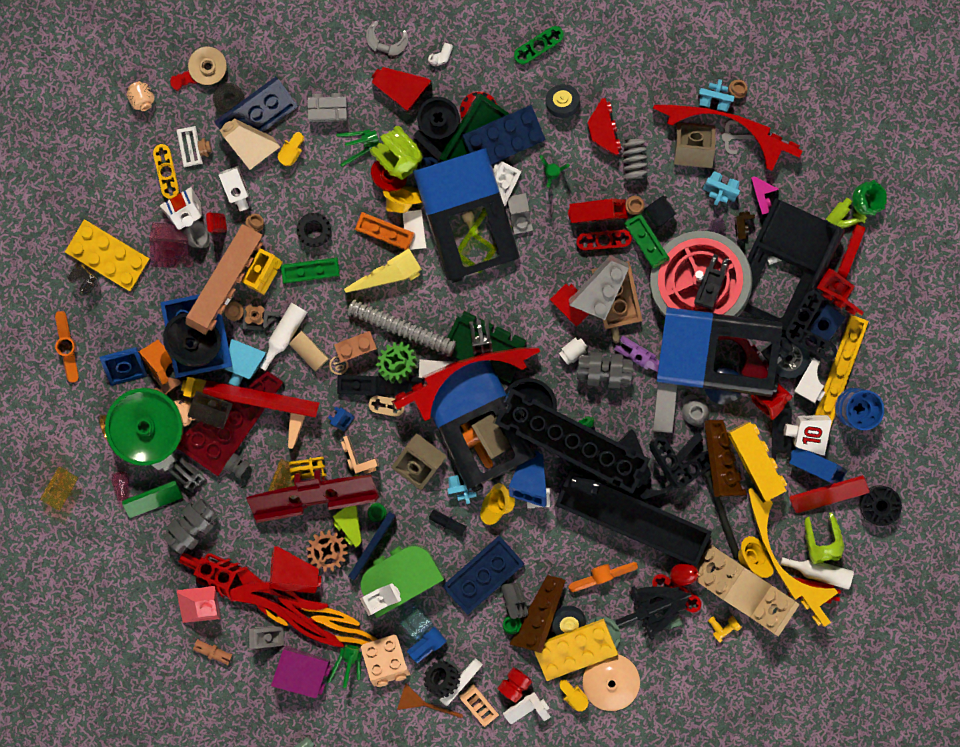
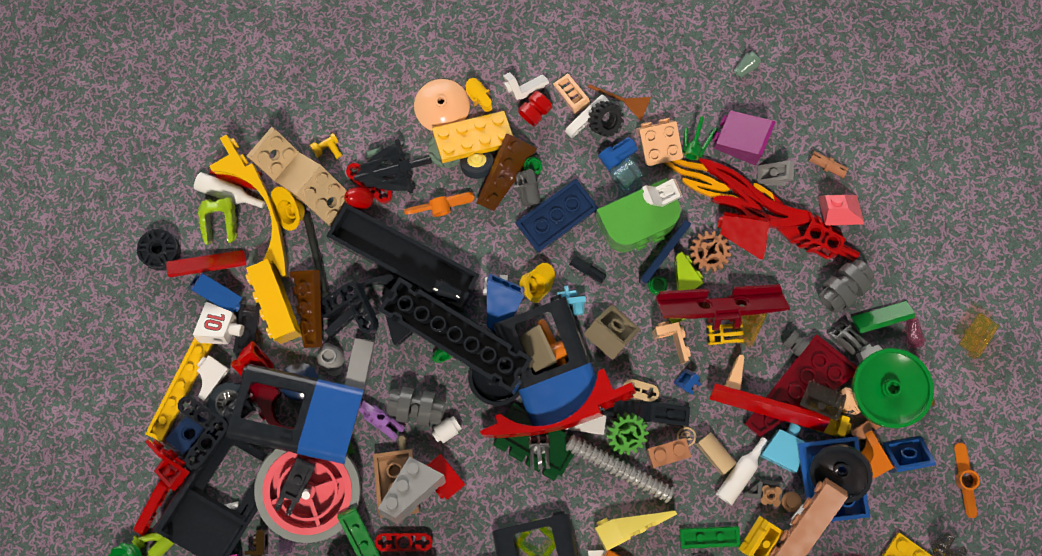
camera: 175 degrees left, 10 degrees down
(869, 412) = (164, 345): blue wheel -> none

